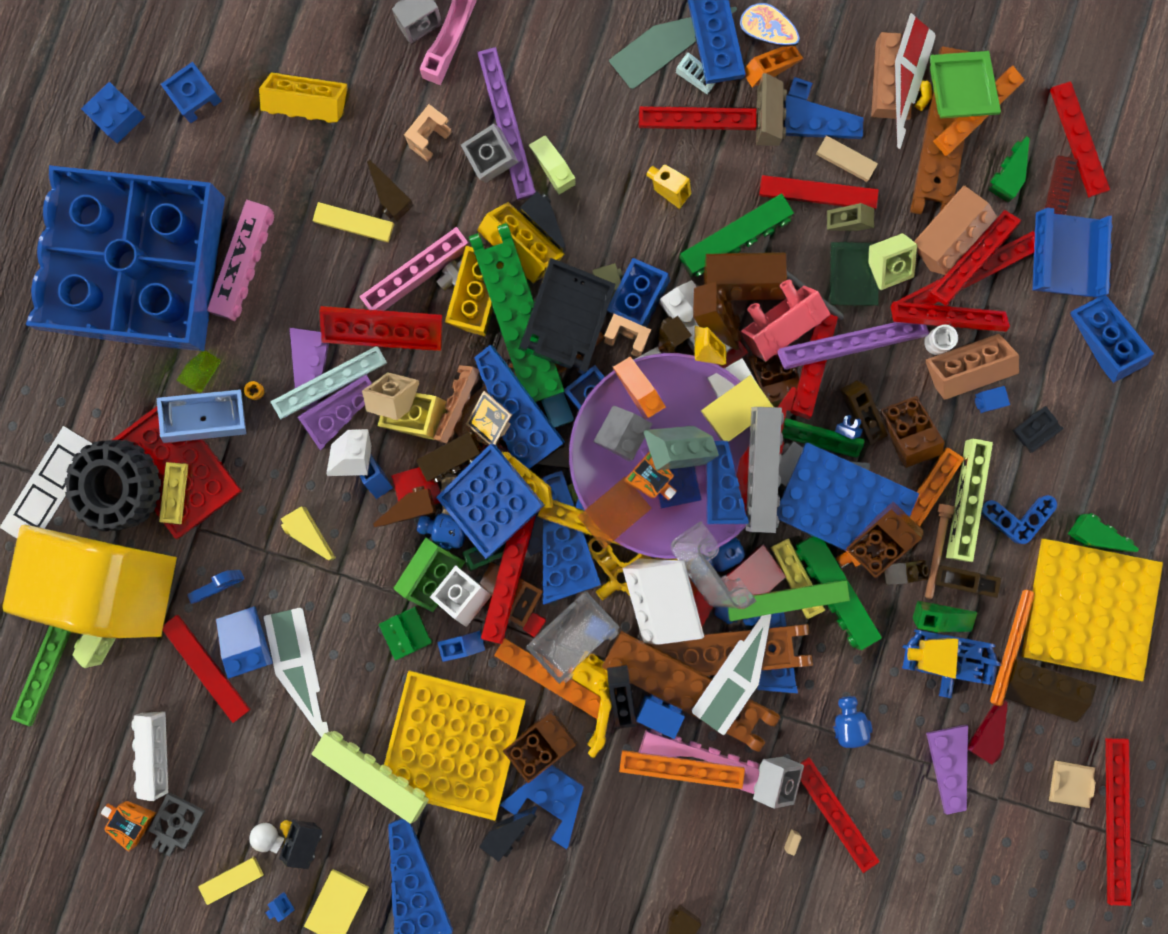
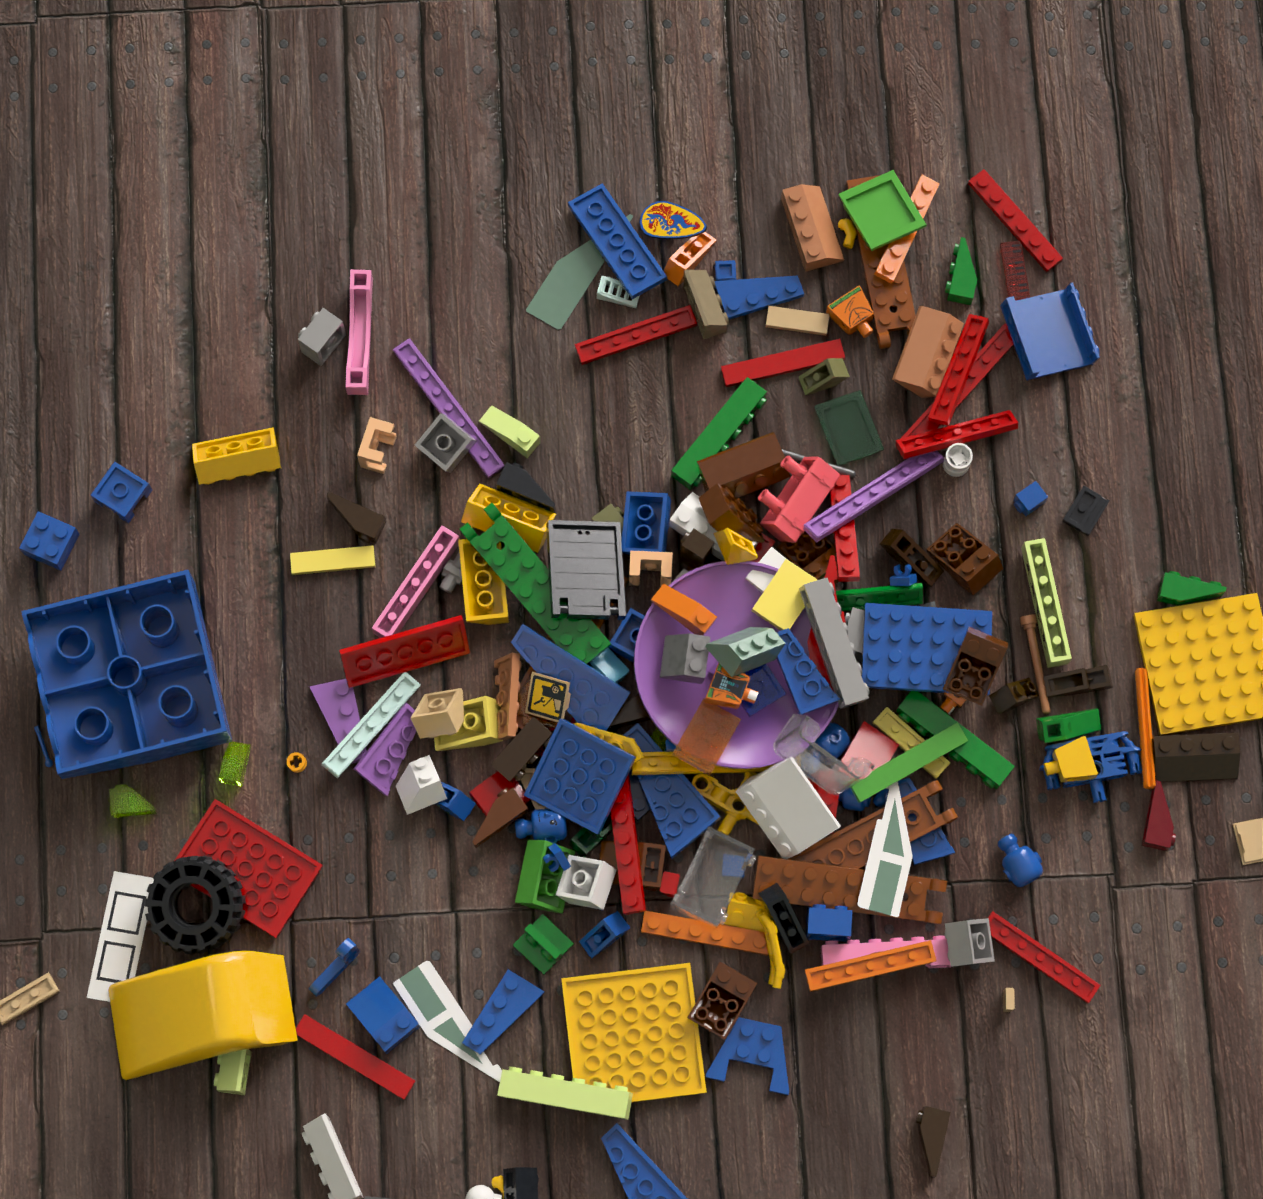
camera: 25 degrees left, 10 degrees down
(40, 675) = (188, 1123): bright green tile -> none
(95, 370) = (127, 802): none -> clear neon green slope
(173, 493) = (257, 891): light yellow tile -> none
(181, 416) = (274, 791): light blue piece -> none
(241, 260) = (235, 639): bright pink brick -> none
(304, 529) = (403, 880): light yellow slope -> none
(349, 676) = (503, 1008): none -> blue wing
(443, 566) = (558, 858): none -> blue tile
(503, 833) = (720, 1102): black slope -> none
(670, 184) = (635, 408): yellow torso -> none
(893, 260) = (880, 401): yellowish green slope -> none
(899, 169) = (852, 312): none -> orange torso
(910, 68) = (824, 213): white sticker -> none
(935, 484) = (1006, 608): orange plate -> none
(949, 759) = (1132, 866): medium lavender wing -> none
(973, 366) = (999, 474): nougat slope -> none
(1017, 525) = (1102, 610): blue beam -> none
(1111, 338) = (1121, 398): blue slope -> none

